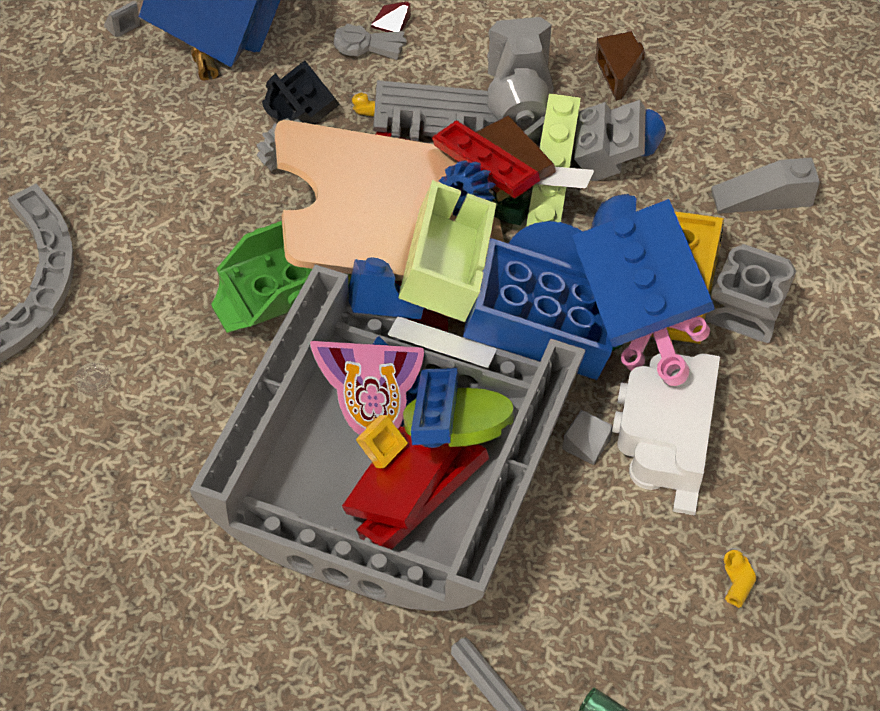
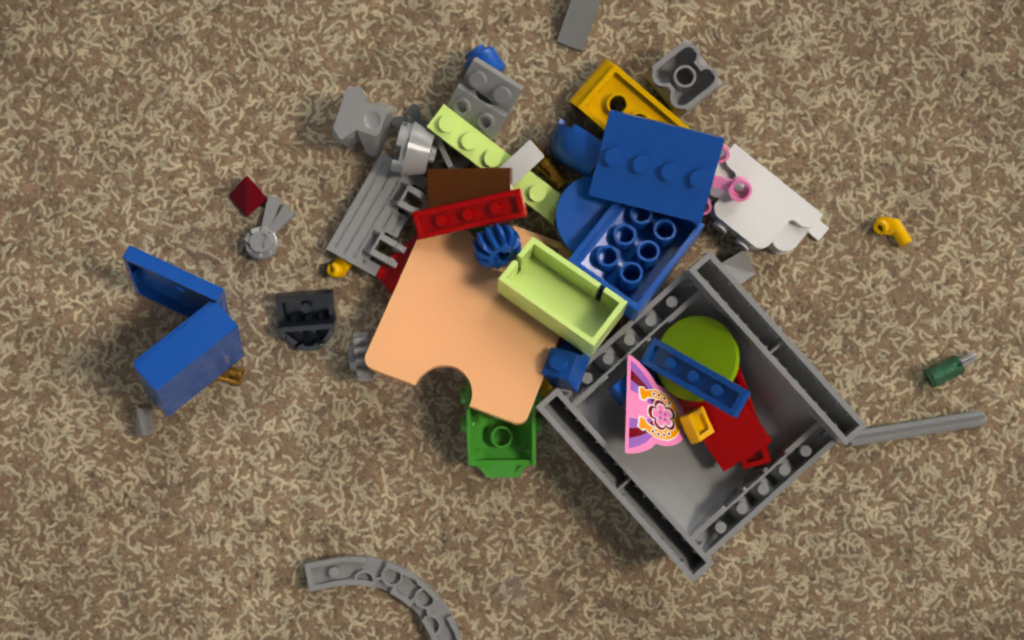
camera: 60 degrees left, 35 degrees up
(442, 341) = (628, 338): white sticker -> none
(583, 214) = (550, 170): none -> pearl gold pin
(619, 61) = (397, 38): reddish brown slope -> none

